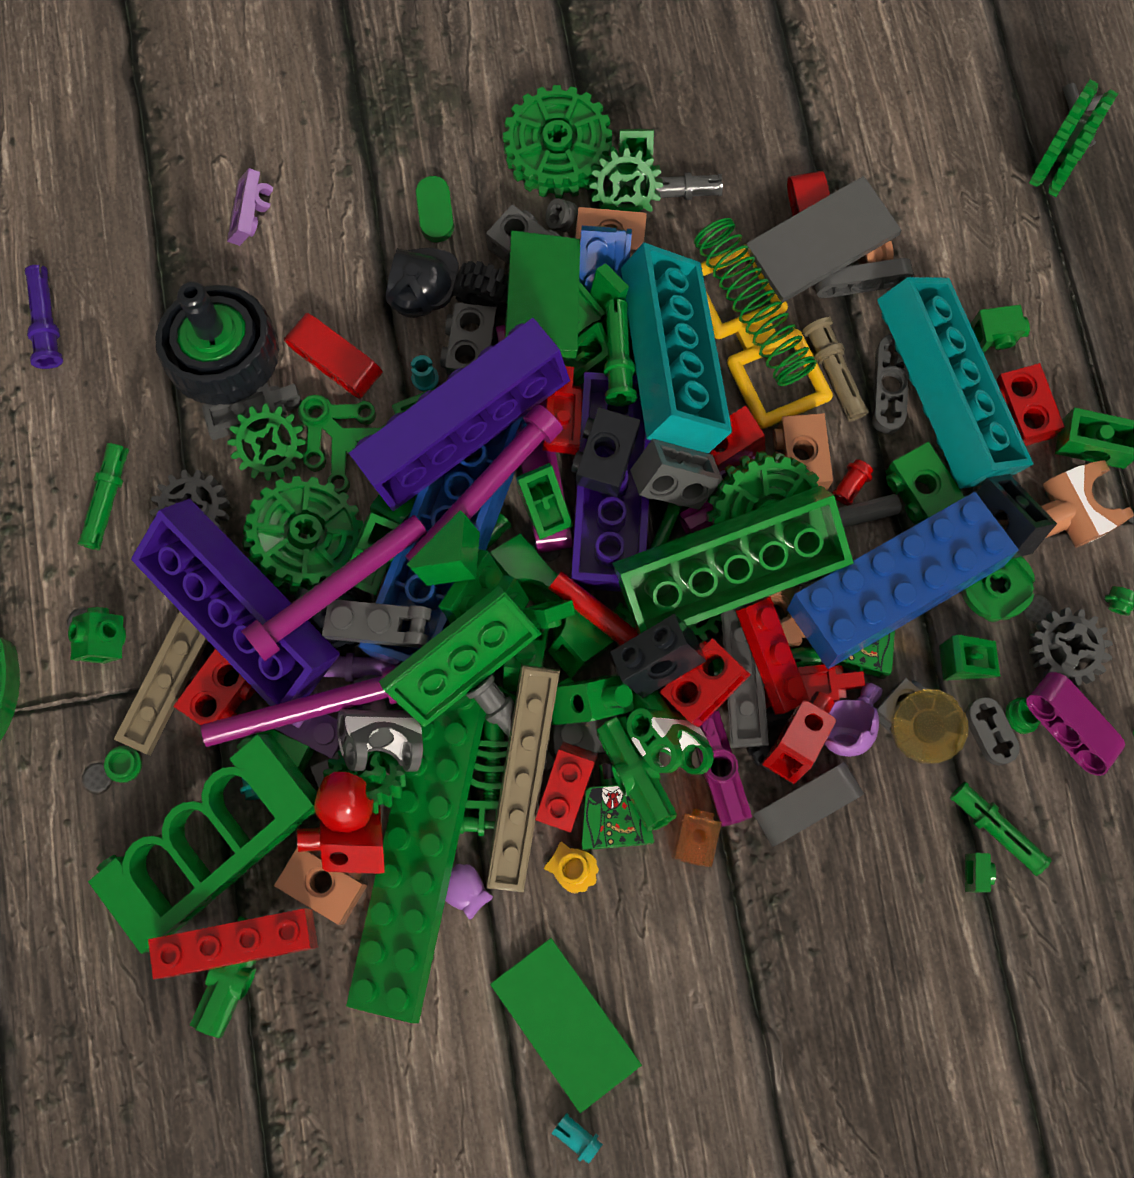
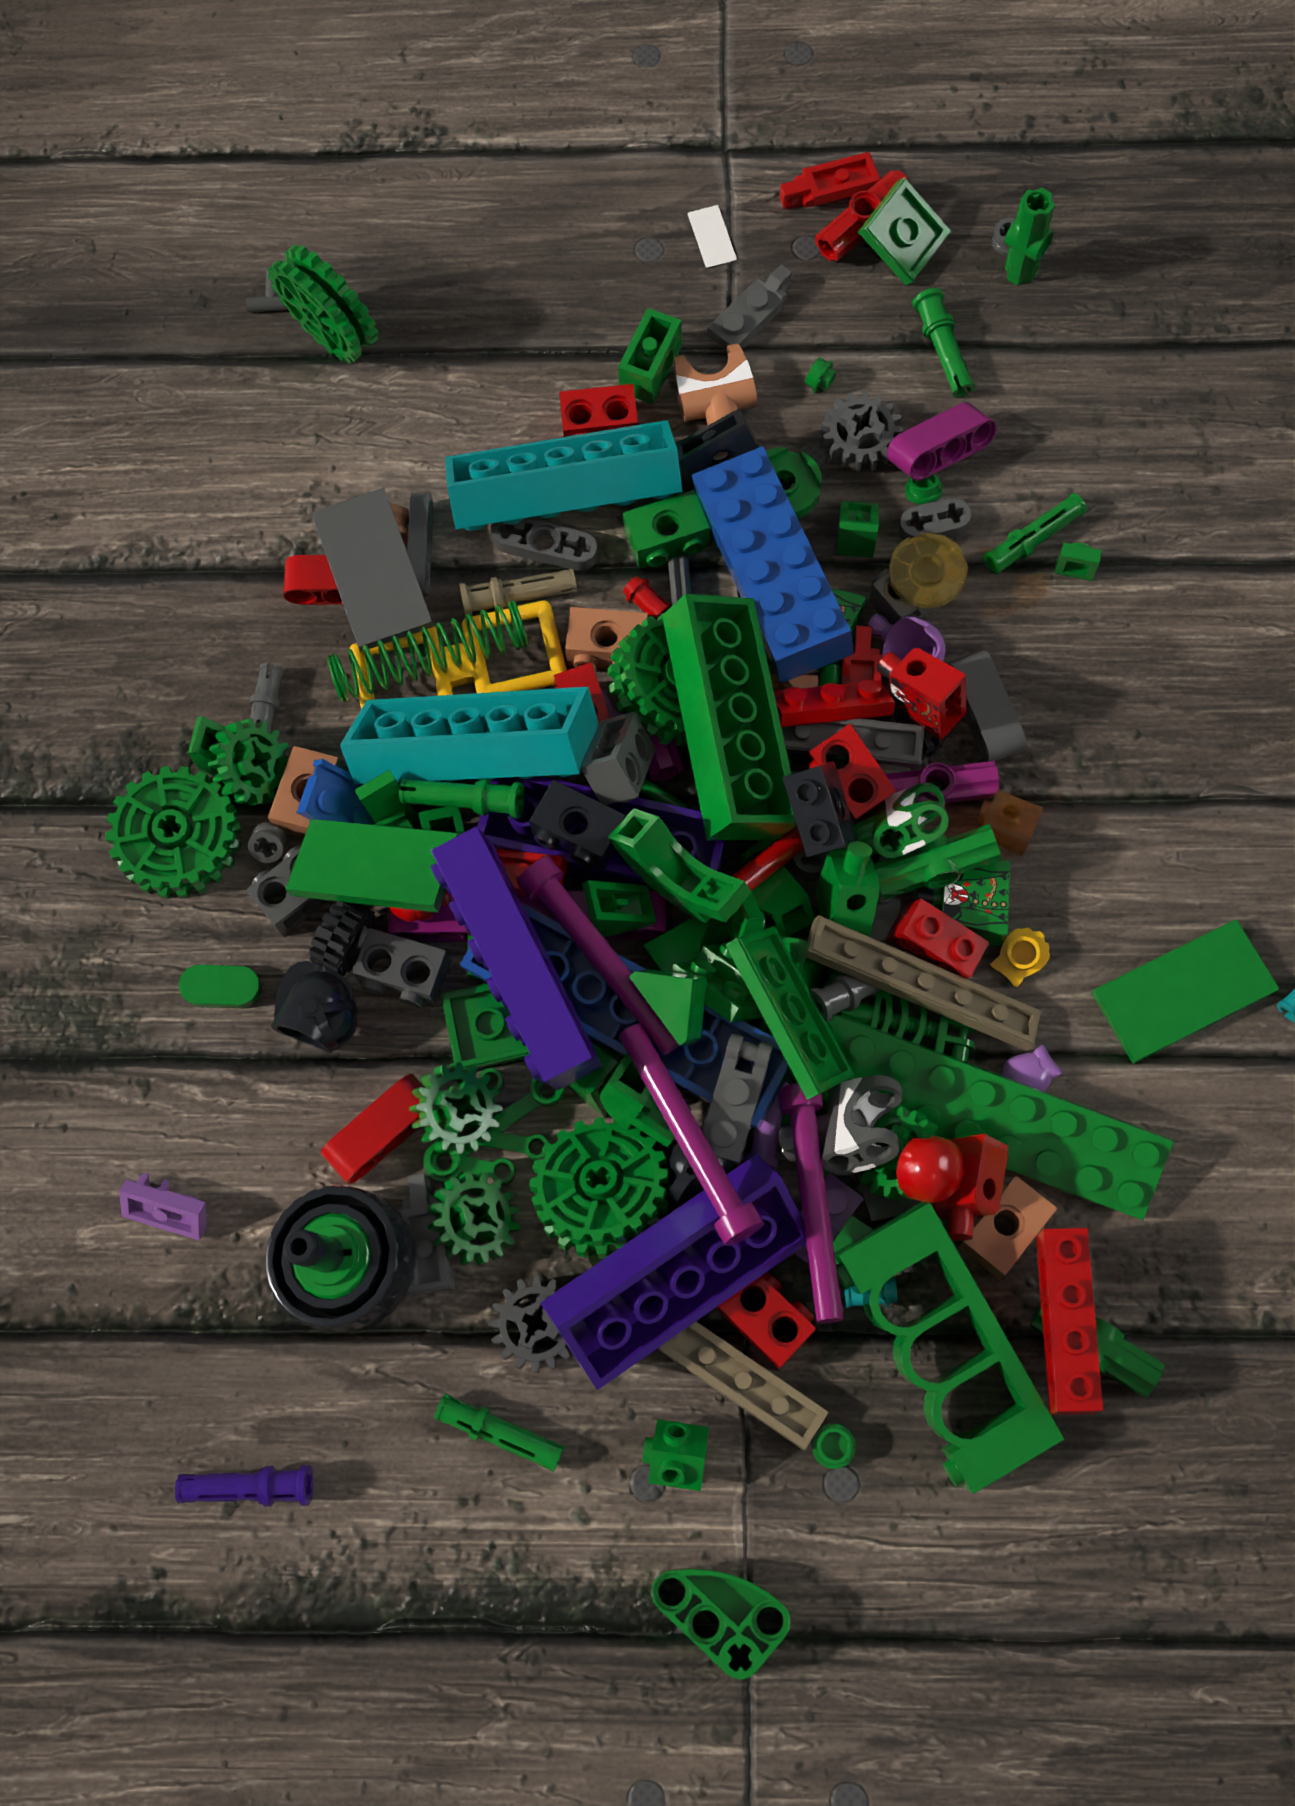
camera: 75 degrees left, 5 degrees down
(335, 405) = (439, 1116): none -> green gear
(423, 373) = (432, 1033): teal pin -> none
(577, 540) = (673, 872): none -> green arch
(1000, 327) = (507, 421): green brick -> none

